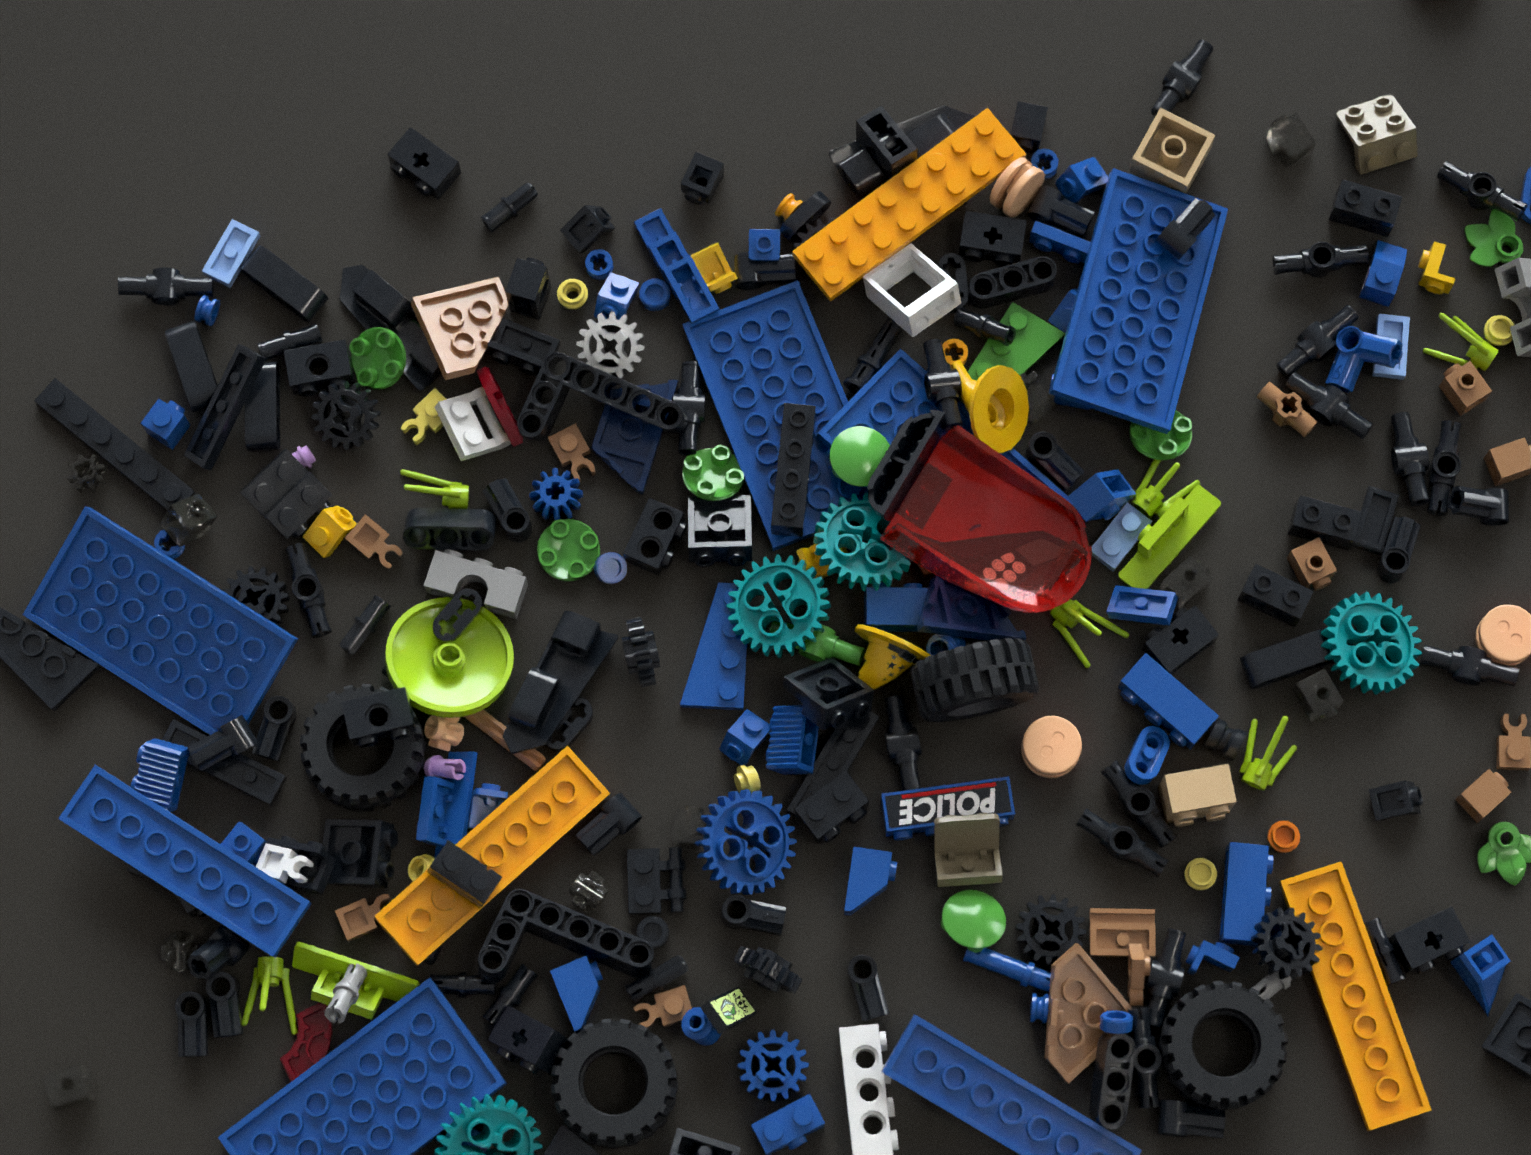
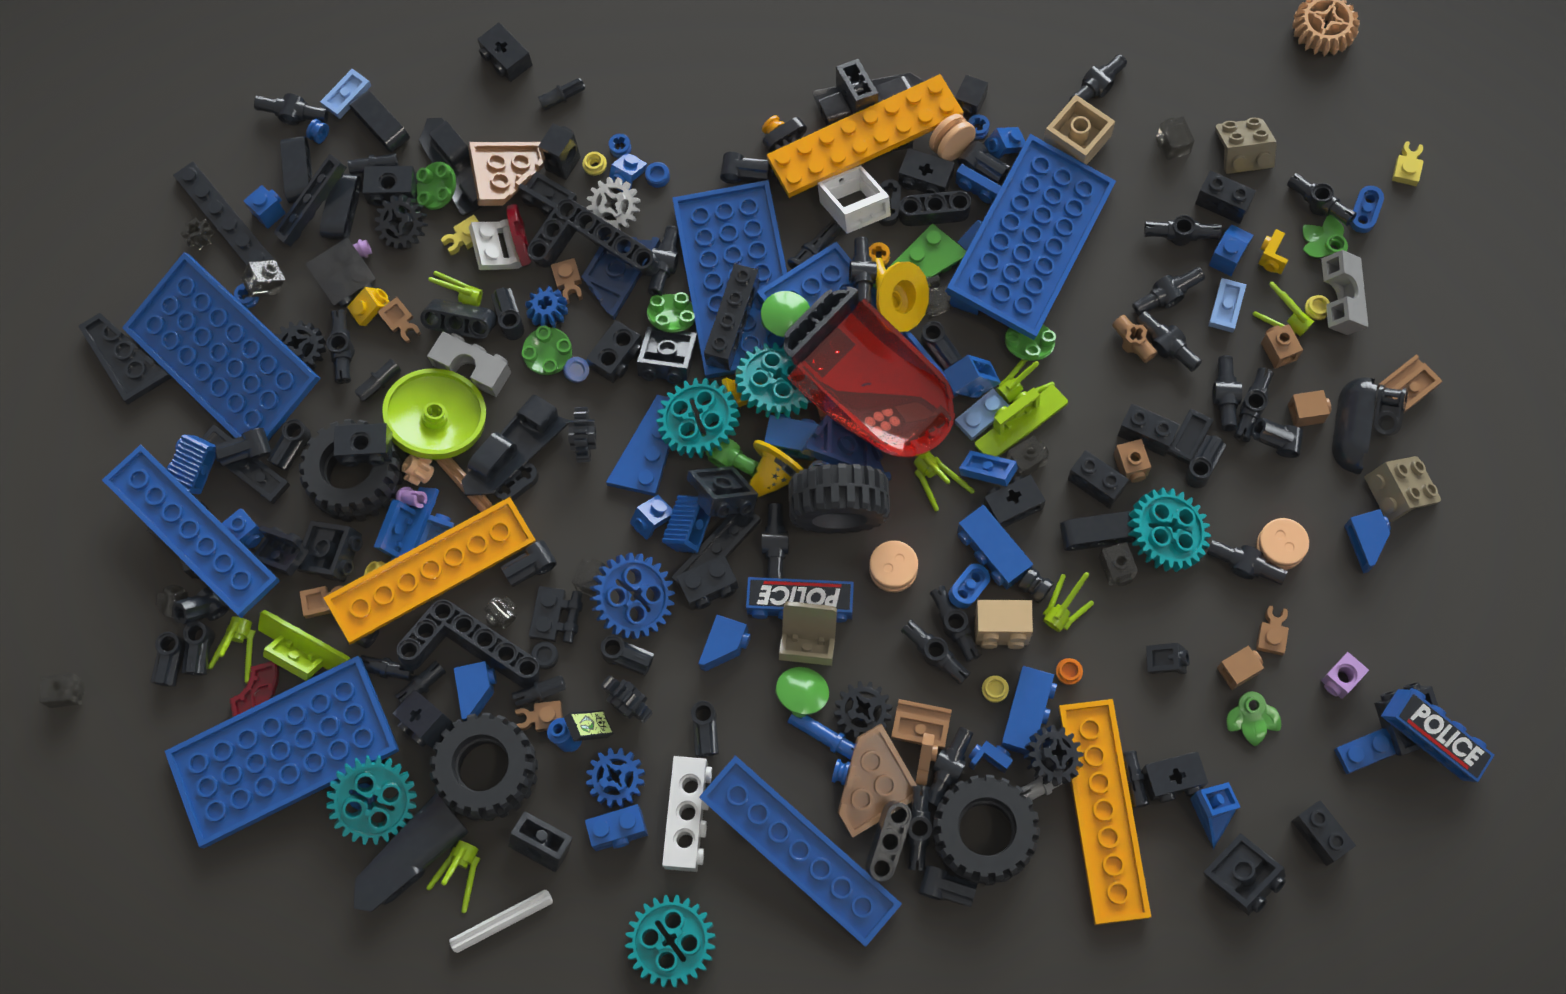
camera: 15 degrees right, 5 degrees down
(282, 862) = (265, 546): white plate -> none
(345, 993) = (288, 655): light grey pin -> none
(452, 610) = (444, 378): black beam -> none
(464, 874) = (400, 577): black brick -> none
(587, 227) = (616, 116): black bracket -> none
(676, 266) = (677, 155): blue slope -> none
(701, 169) = (713, 89): black brick -> none
(714, 268) = (705, 161): yellow bracket -> none
(747, 778) = (645, 547): light yellow plate -> none
(764, 244) = (748, 148): blue bracket -> none
(985, 326) = (906, 236): black pin -> none
(1116, 1022) = (900, 793): blue tile -> none
(1183, 231) = (1074, 190): black piece -> none
(1370, 349) = (1200, 301): blue piece -> none

